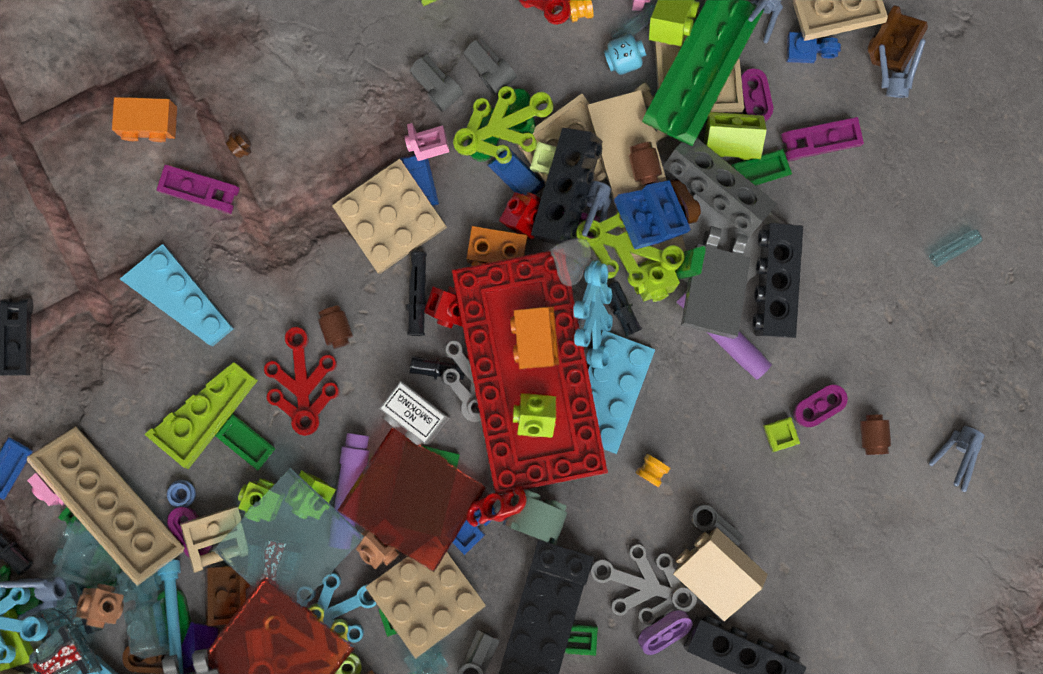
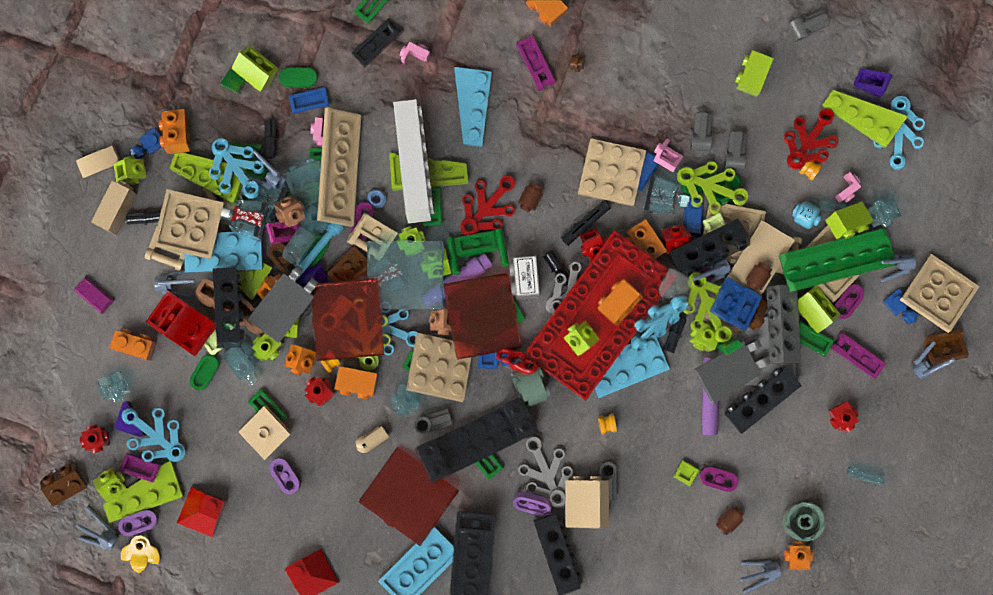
camera: 40 degrees right, 0 degrees up
(66, 301) = (419, 51): none -> bright pink bracket
(113, 638) = (280, 232): none -> dark pink slope
(172, 419) = (413, 161): none -> white brick
(330, 434) = (475, 245): none -> green plate
(466, 185) = (663, 197): none -> clear light blue torso
(874, 213) = (837, 414): none -> red brick
(965, 355) = (814, 520): none -> sand green brick
(981, 398) = (803, 561): none -> orange brick

